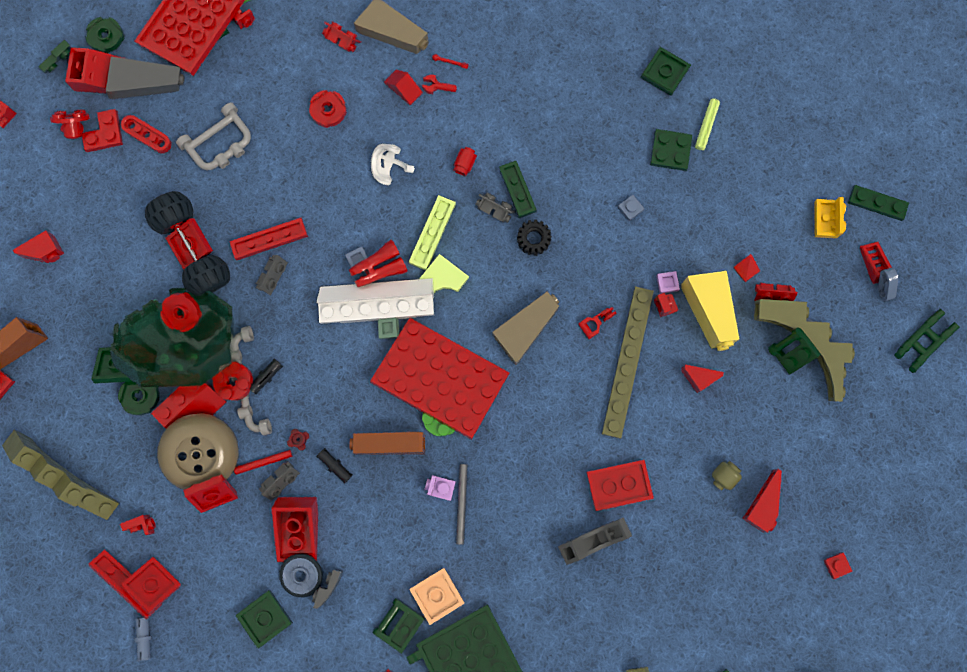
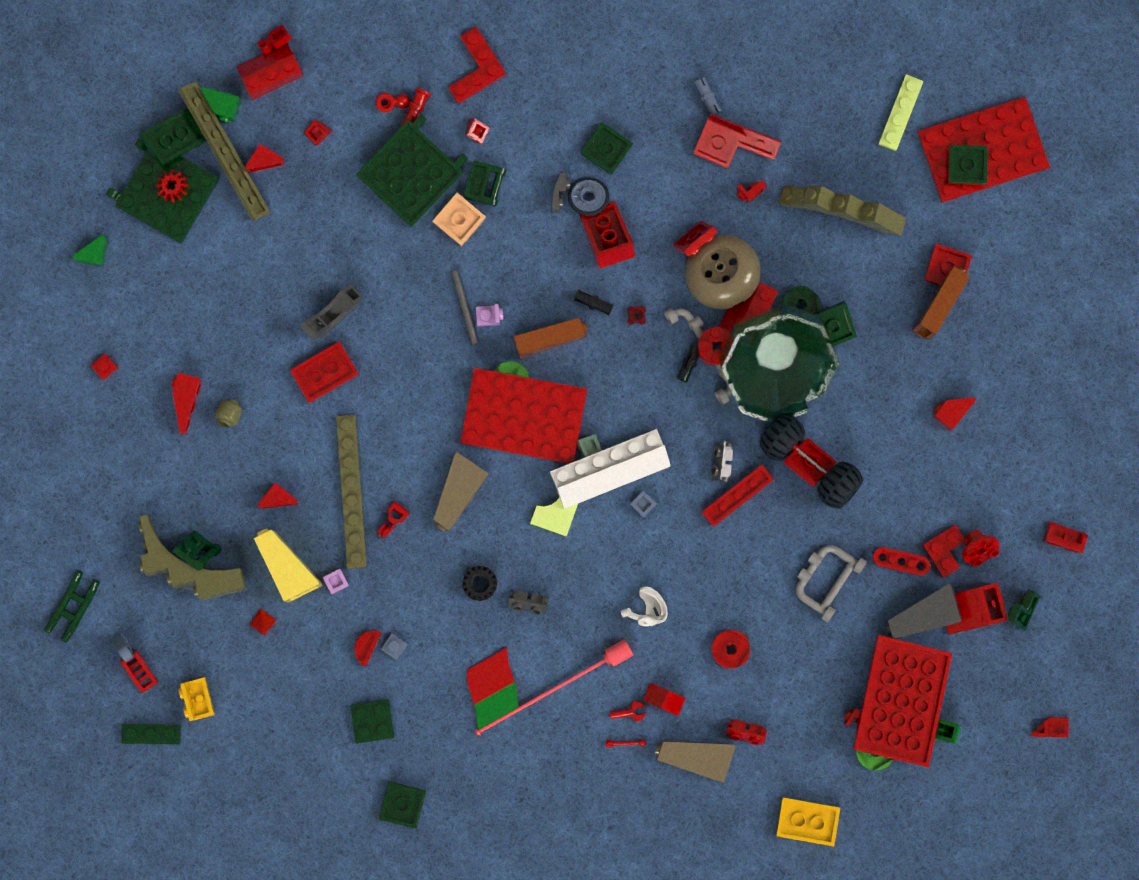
camera: 160 degrees right, 5 degrees up
(111, 41) = (977, 654): dark green plate -> none
(187, 304) = (785, 401): red plate -> none
(262, 462) = (660, 285): red bar -> none
(272, 487) = (635, 278): dark grey hinge -> none
(385, 253) = (627, 494): red piece -> none
(432, 233) = (580, 555): yellowish green plate -> none
(464, 161) = (574, 638): red brick -> none
(517, 189) = (512, 627): dark green plate -> none
(550, 142) = (496, 692): none -> flag
(657, 216) = (365, 646): none -> red plate
(665, 304) = (331, 558): red bracket -> none
(707, 124) = (343, 761): yellowish green axle -> none
(782, 292) = (220, 607): red hinge -> none

